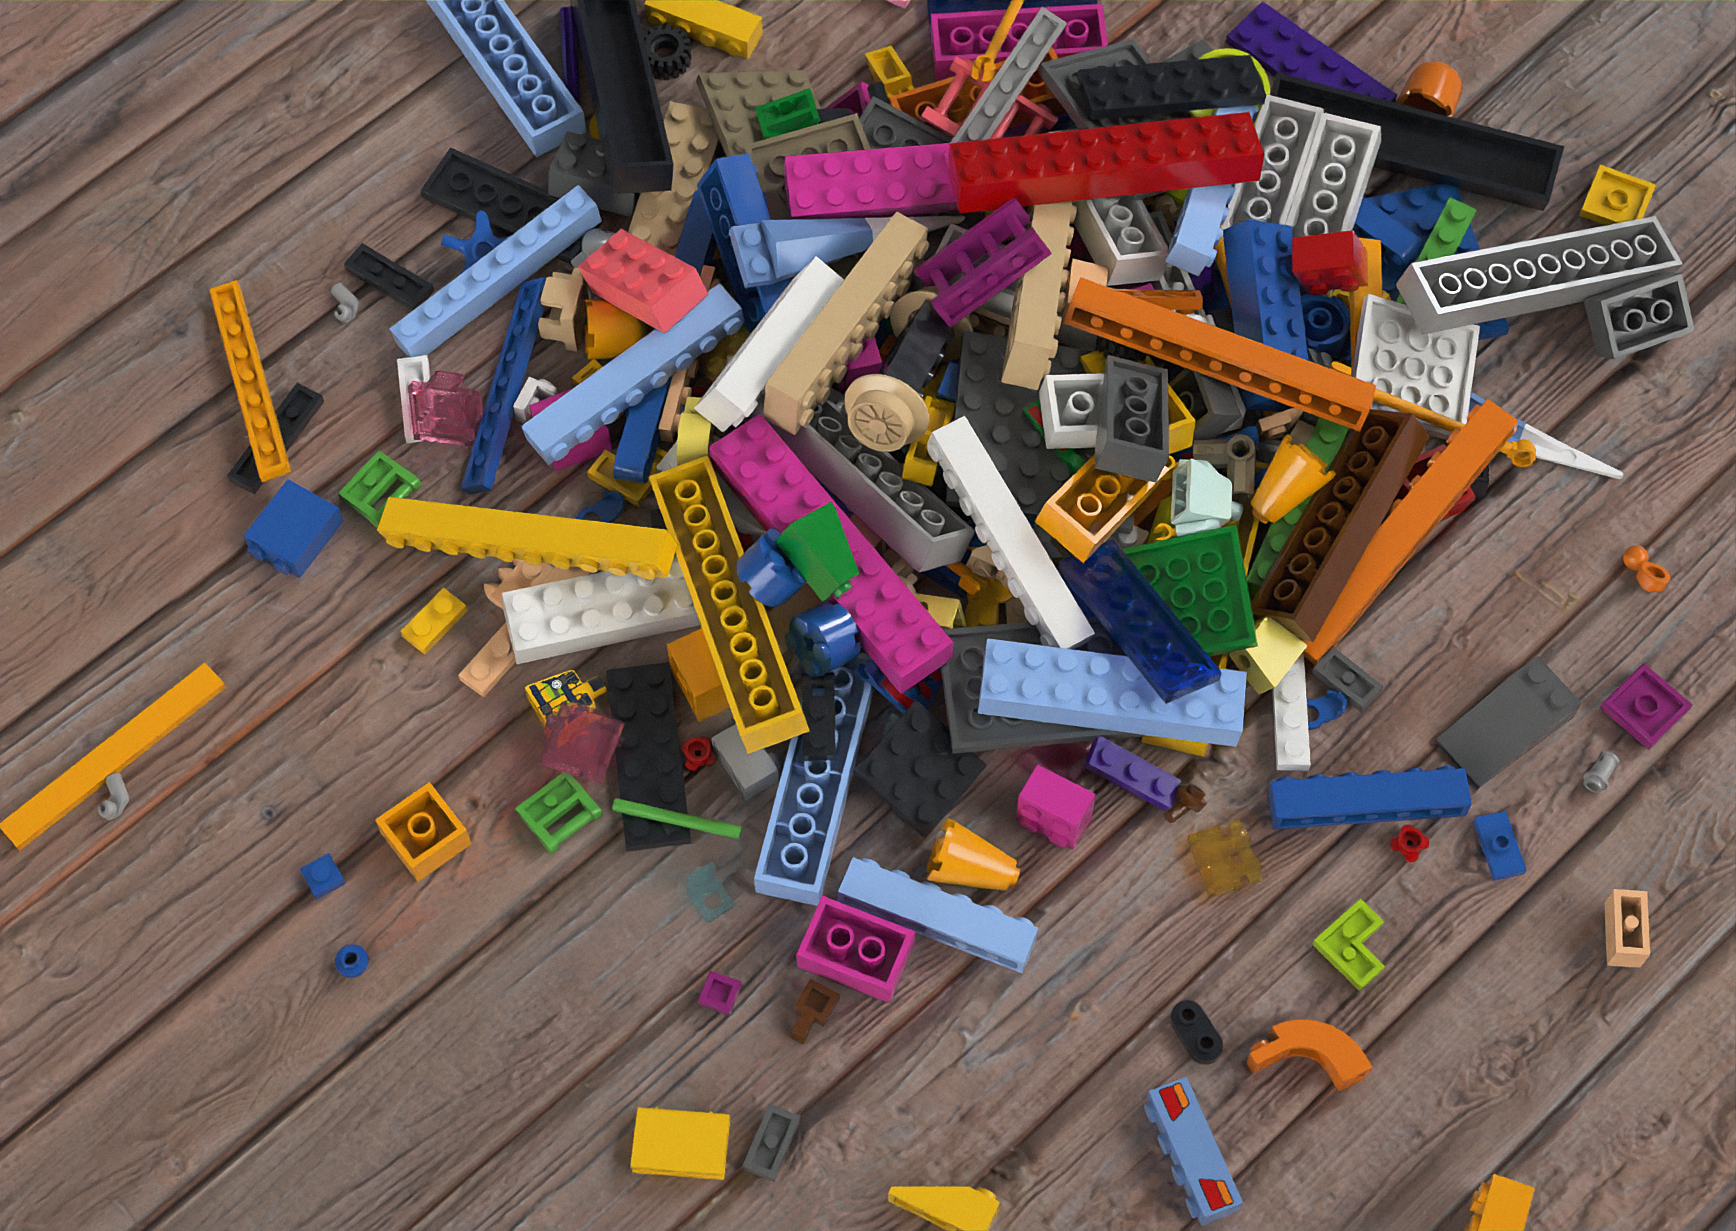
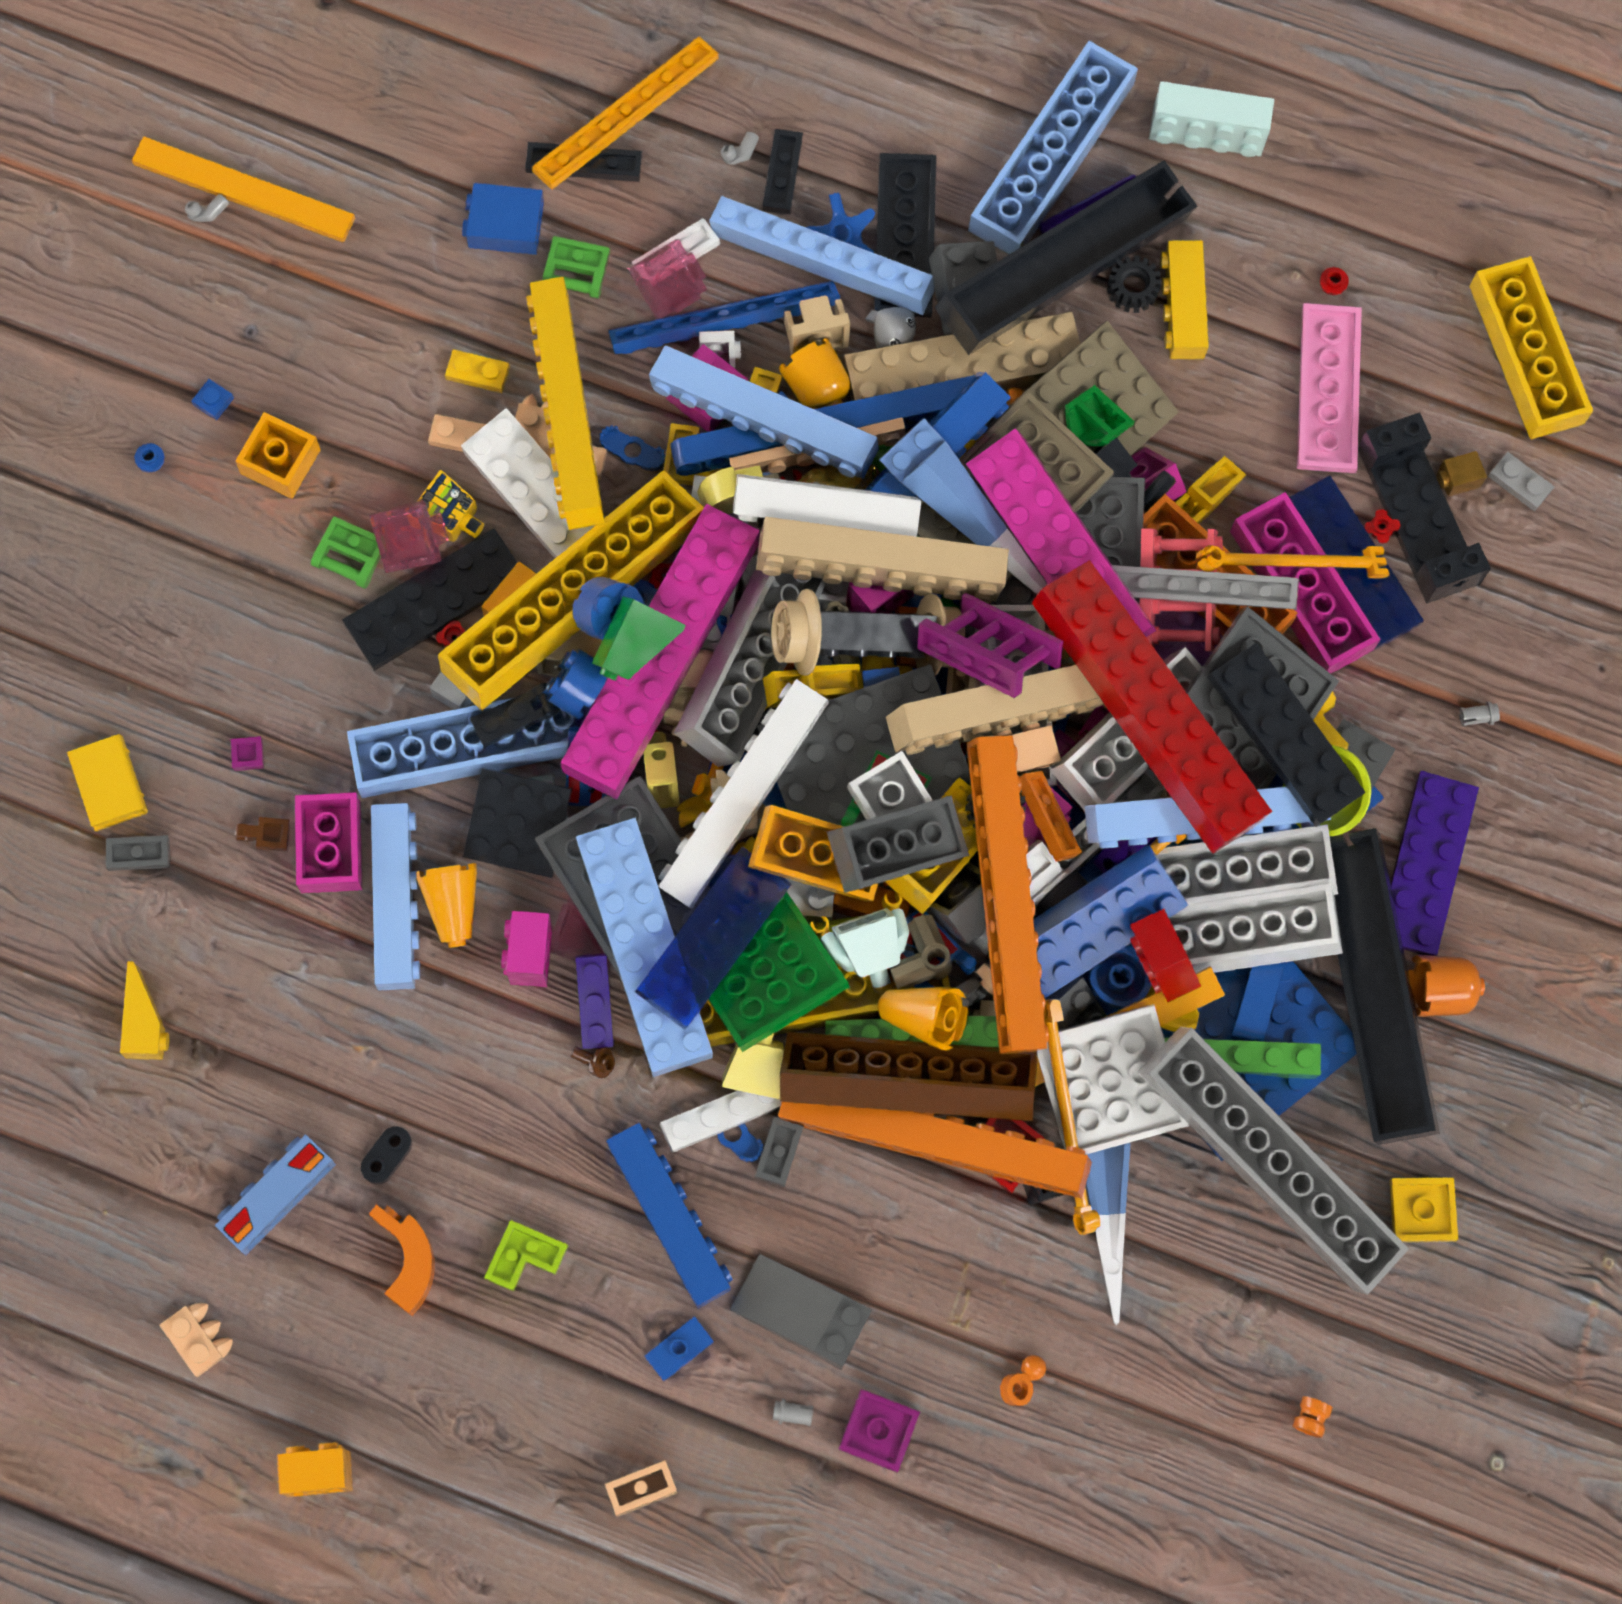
camera: 60 degrees right, 10 degrees up
(643, 280) = (851, 373): coral brick -> none
(677, 818) = (380, 647): bright green bar -> none
(705, 881) = (335, 694): clear light blue bracket -> none
(1215, 863) = (552, 1107): clear yellow plate -> none
(1419, 841) = (641, 1260): red plate -> none
(1639, 315) = (1290, 1274): dark grey brick -> none

